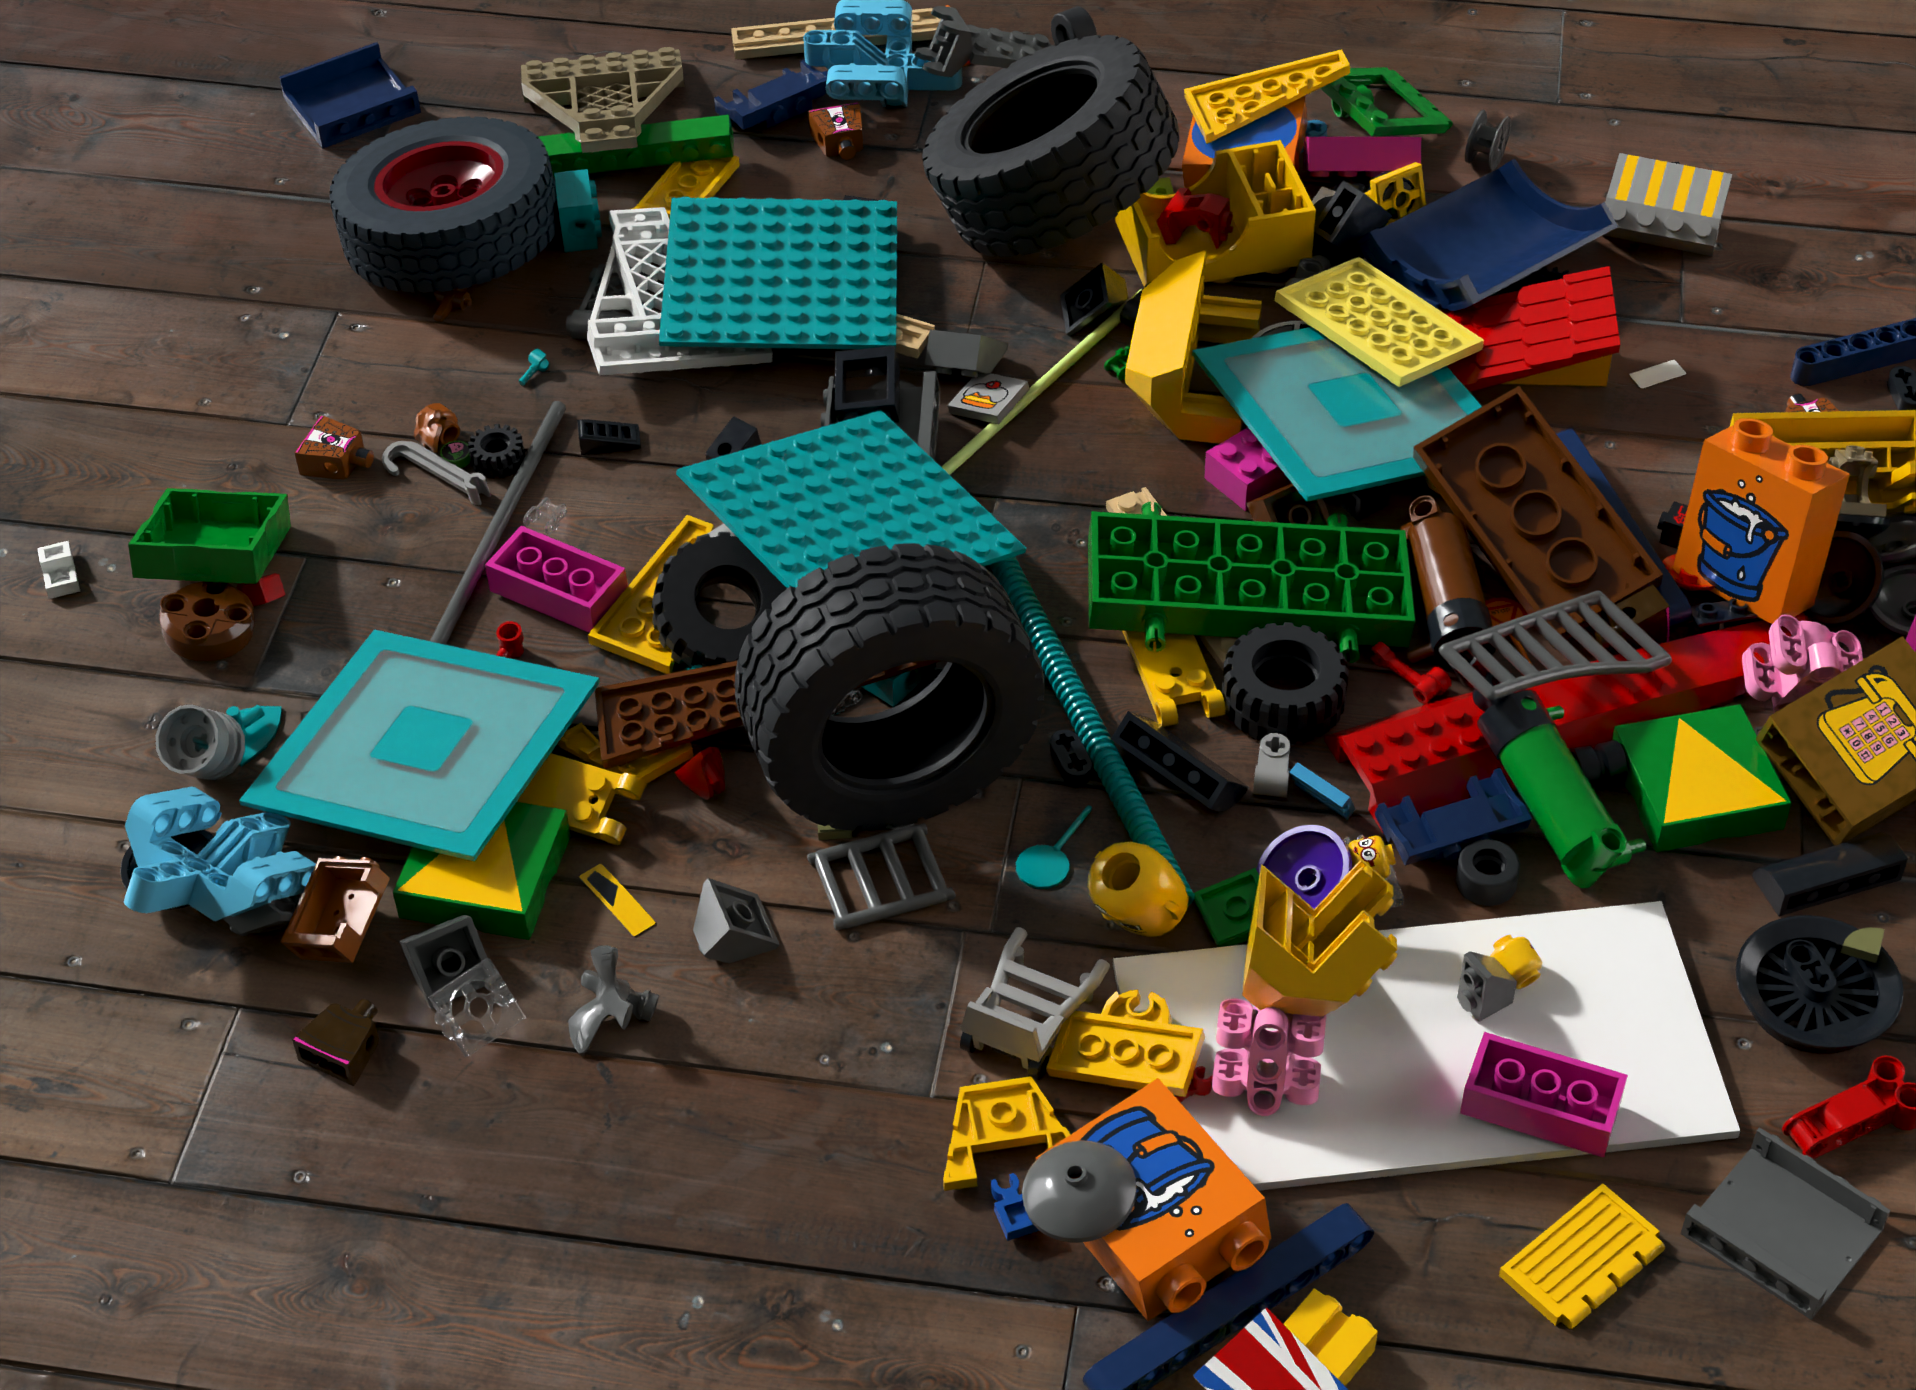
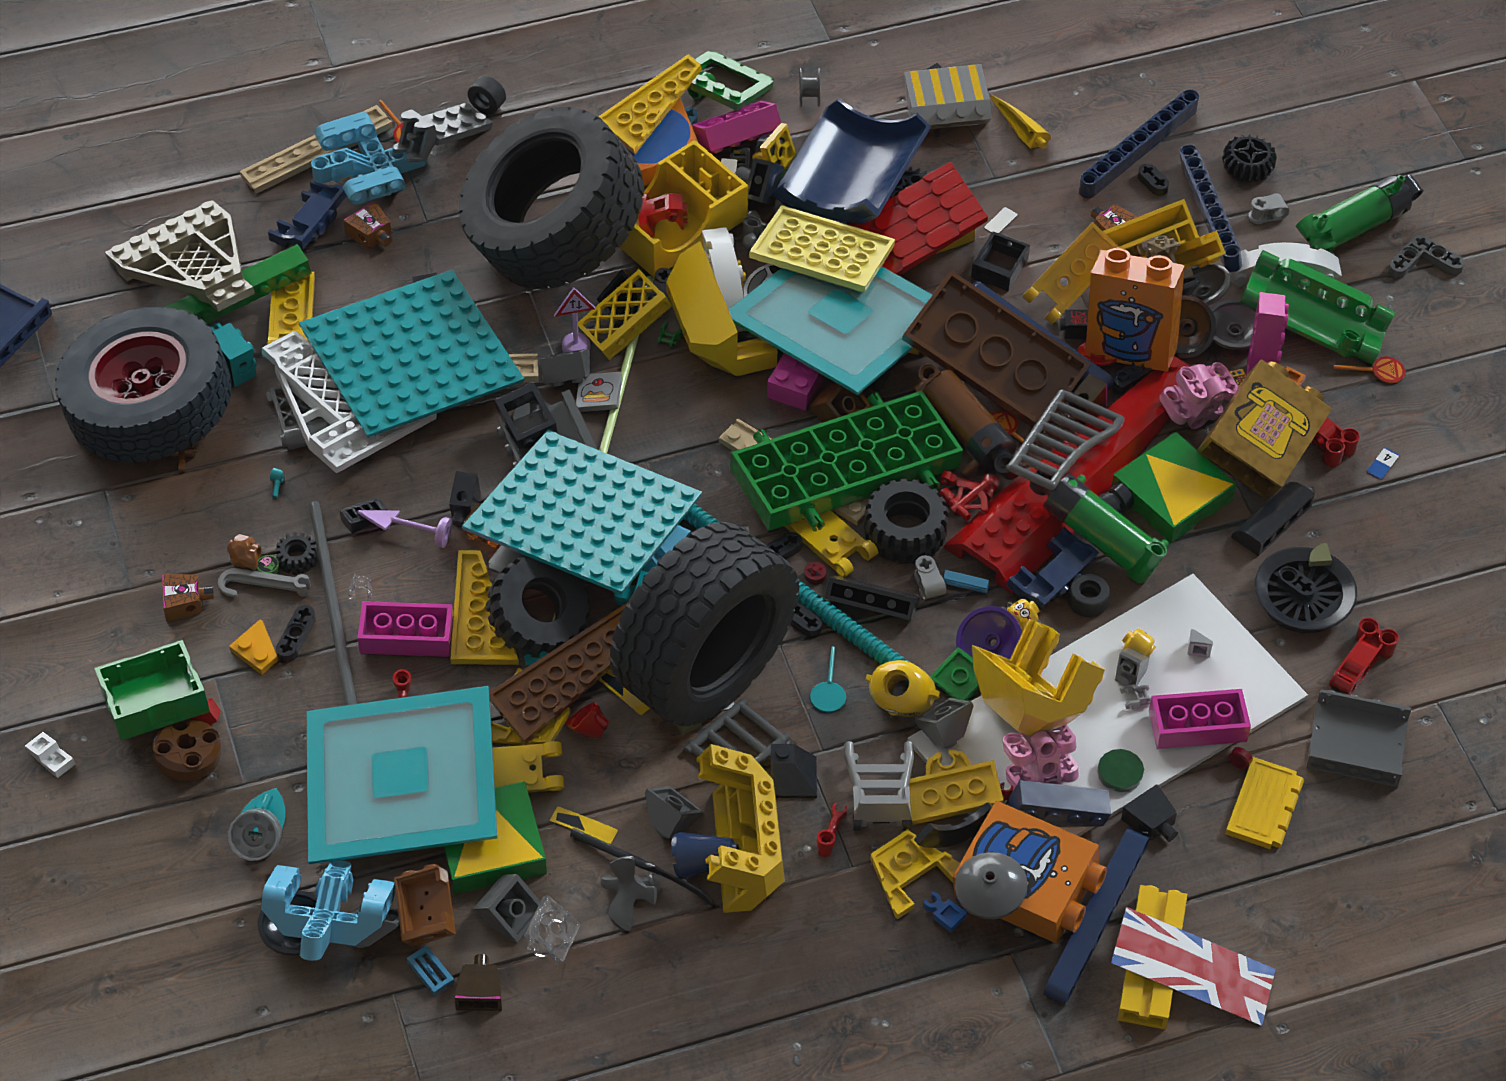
camera: 30 degrees left, 5 degrees up
(302, 1019) = (441, 985): none -> dark azure tile
(375, 539) = (255, 648): none -> light orange wing
(414, 552) = (295, 642): none -> black beam
(645, 969) = (639, 862): none -> black piece
(676, 491) = (385, 518): none -> lavender piece
(721, 988) = (693, 850): none -> dark blue cone
(816, 994) = (748, 814): none -> yellow wedge
(910, 1041) = (826, 838): none -> red brick
(926, 939) = (793, 771): none -> black slope
(1000, 272) = (574, 303): none -> lavender piece
(1071, 1102) = (947, 835): none -> black tile
(1079, 329) = (633, 323): none -> yellow fence
(1103, 660) = (783, 548): none -> black beam
(1123, 702) = (815, 573): none -> dark red tile
(1172, 957) = (946, 722): none -> dark grey slope
(1229, 303) = (720, 252): none -> white brick
(1263, 1129) = (1062, 804): none -> wedge
(1377, 692) = (961, 505): none -> red piece
(1387, 1120) = (1120, 770): none -> dark green tile
(1396, 1200) = (1151, 814): none -> black torso
(1476, 1021) = (1136, 690): none -> light grey piece
(1581, 1176) = (1240, 758): none -> dark red tile
(1595, 425) = (996, 275): none -> black window
(1607, 995) = (1199, 644): none -> light grey slope
(1670, 454) = (1075, 266): none -> yellow hinge
(1759, 273) = (1026, 128): none -> yellow piece

